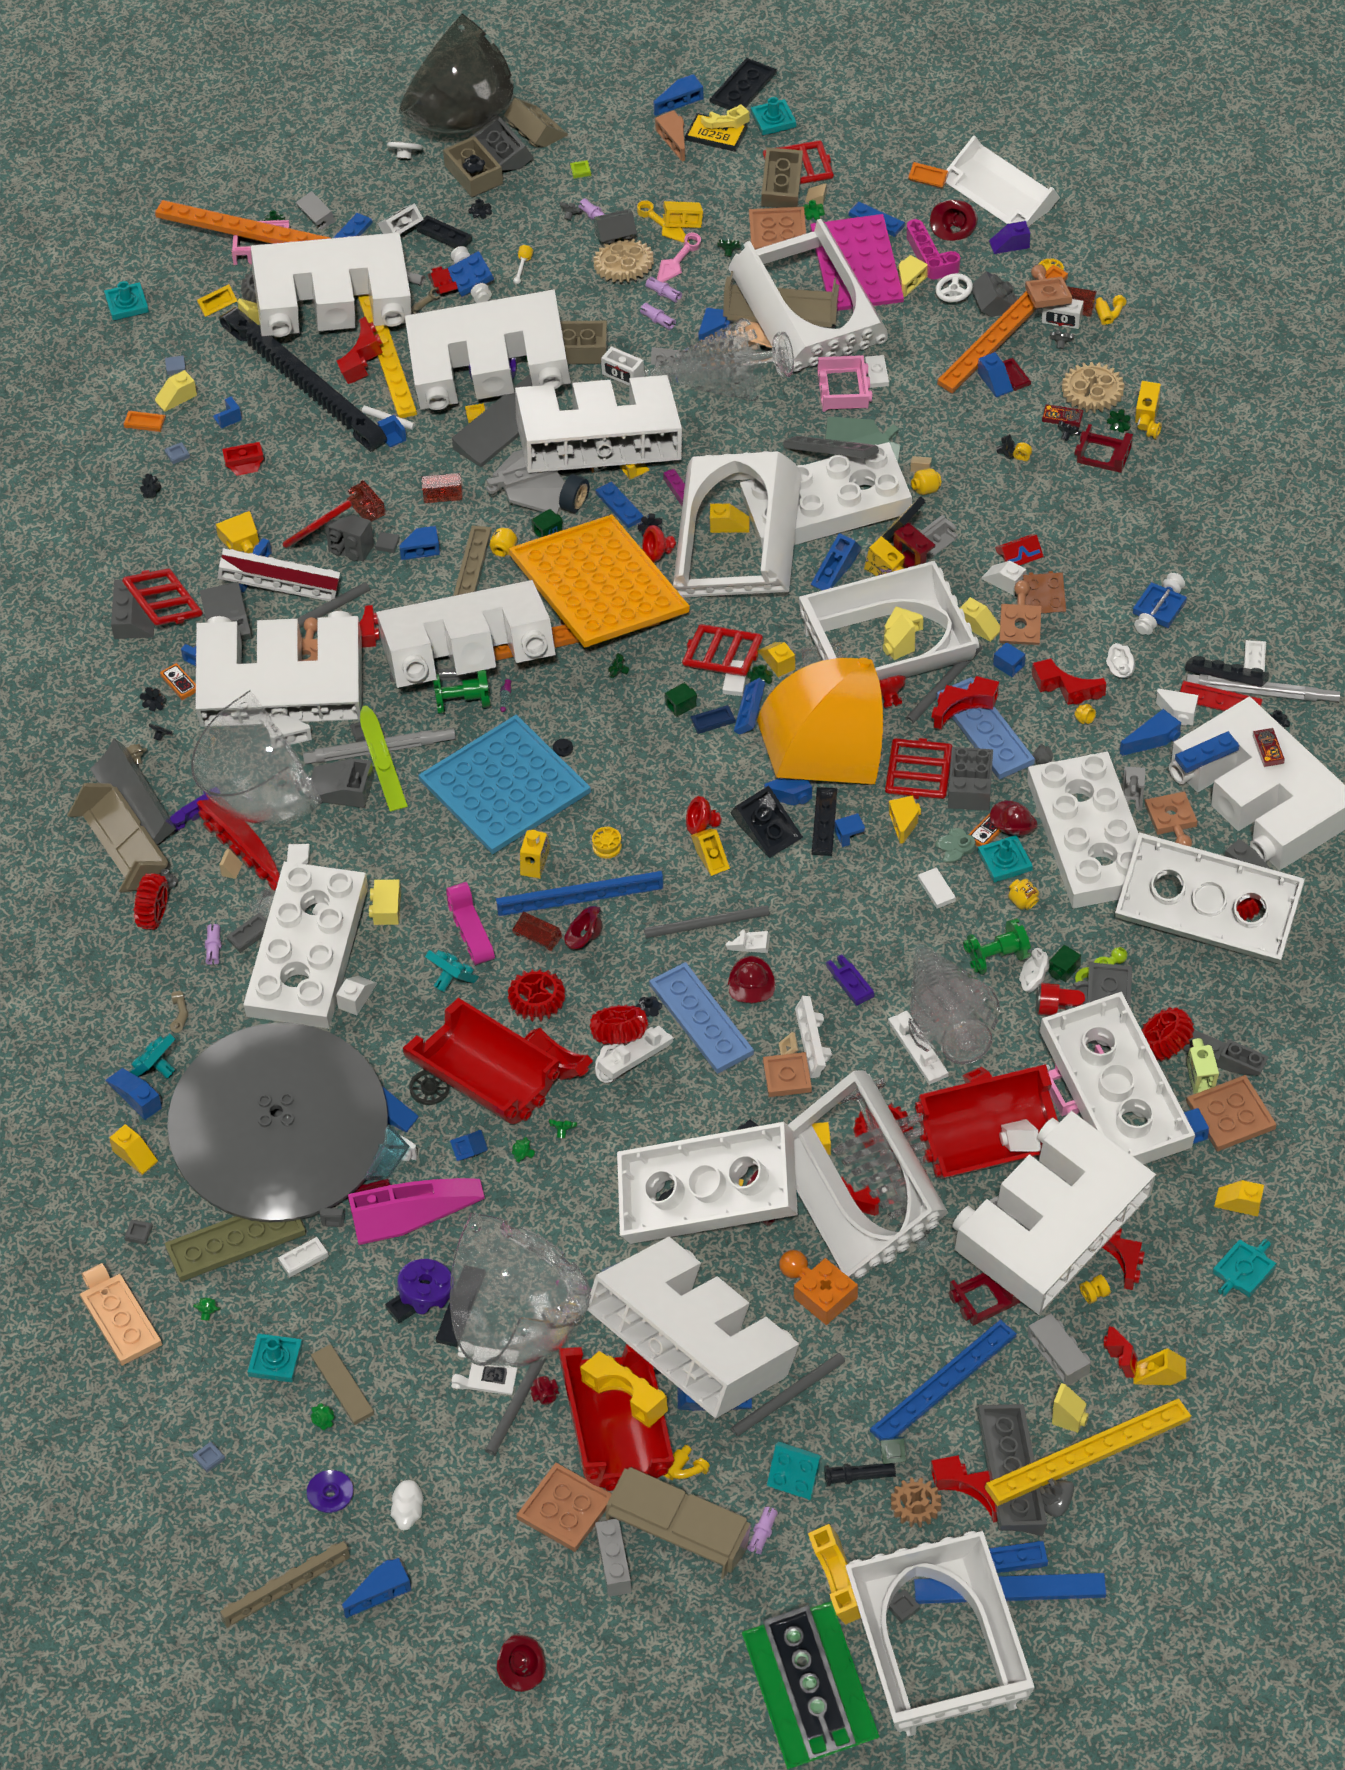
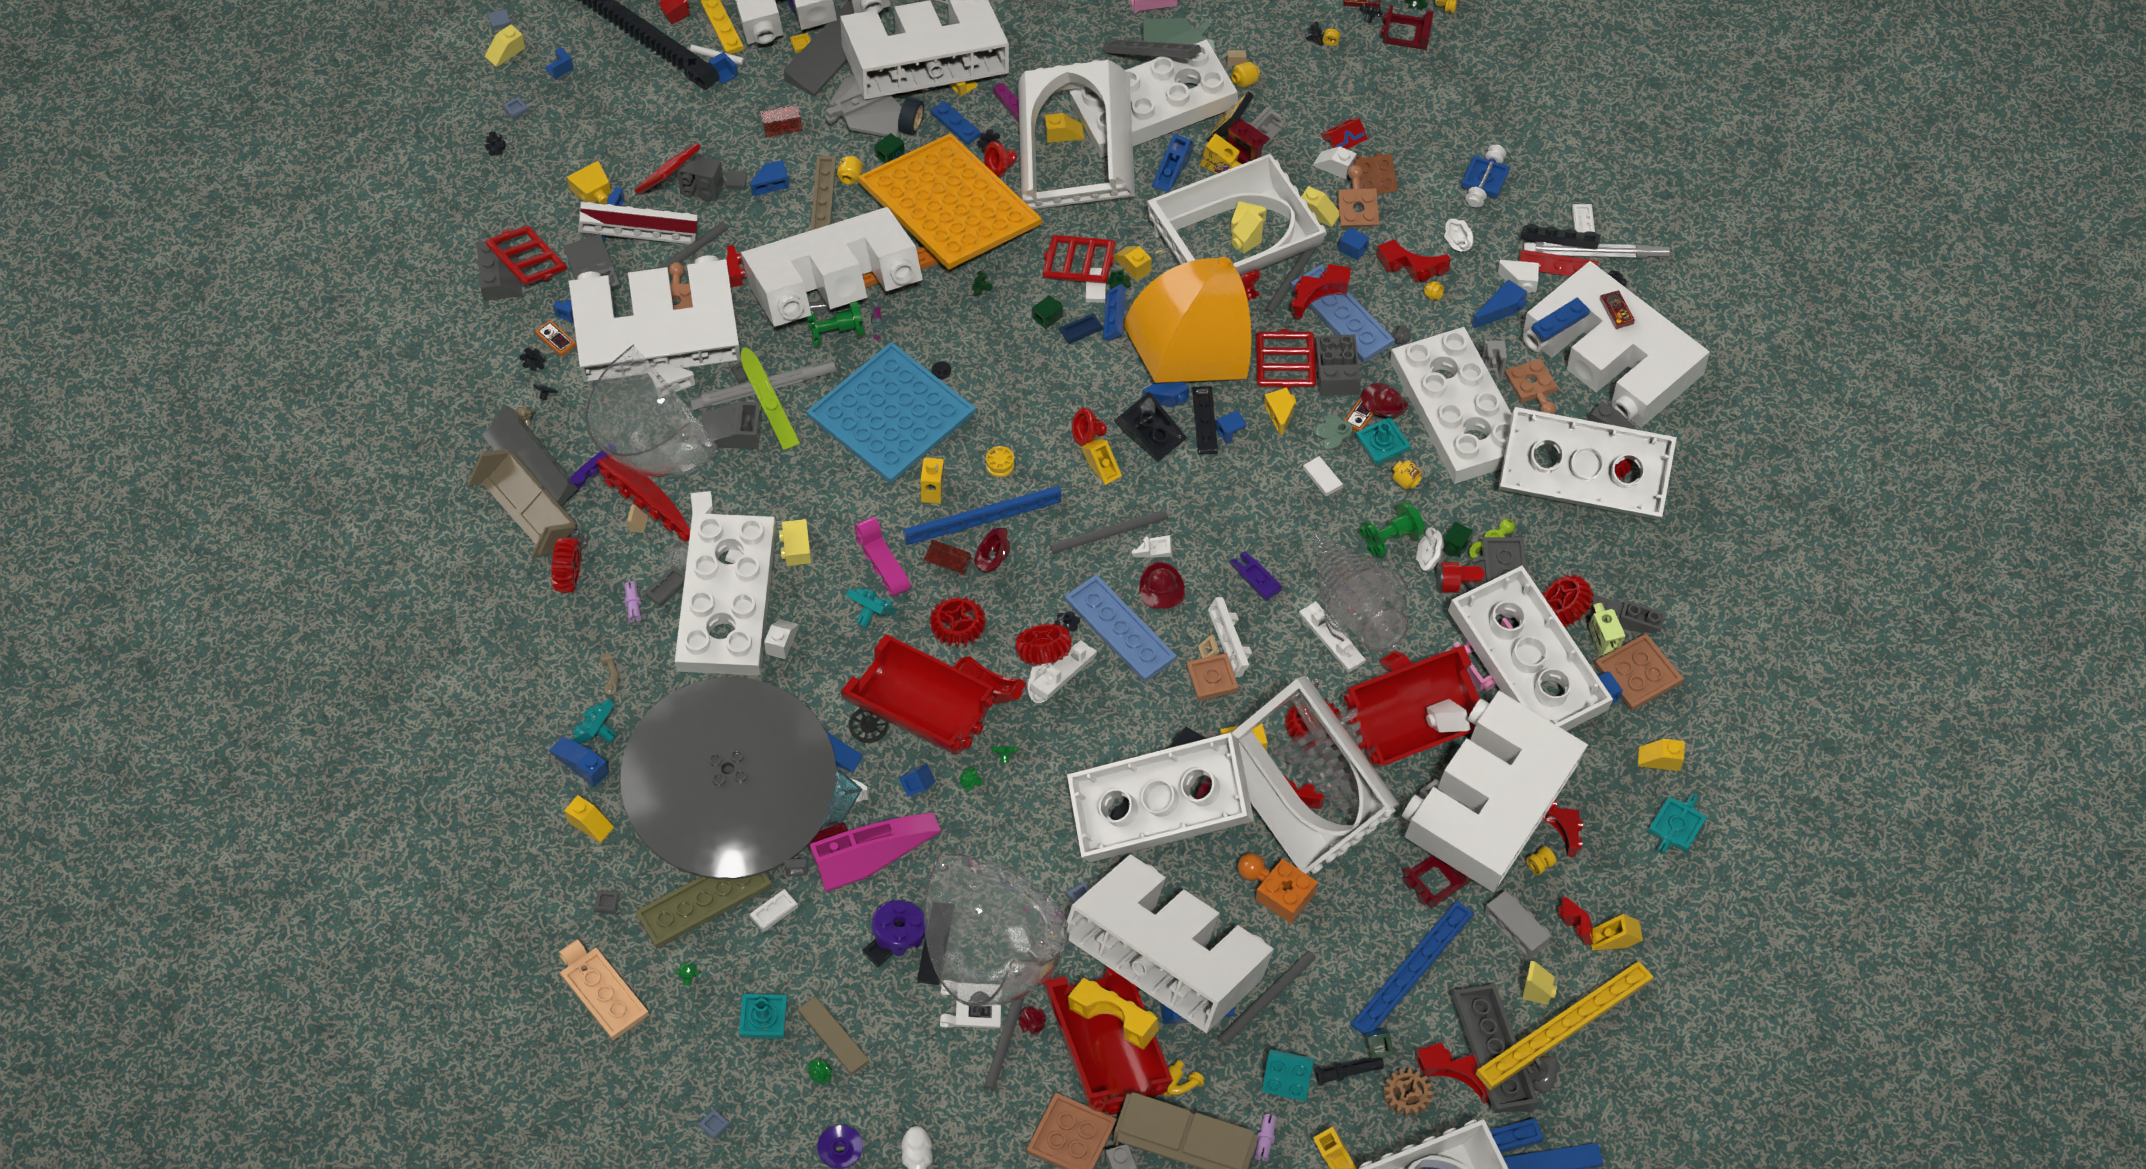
camera: 10 degrees left, 5 degrees up
(144, 421) = (478, 78): orange tile -> none
(243, 458) = (582, 108): red slope -> none
(366, 502) = (712, 143): clear red hinge -> none

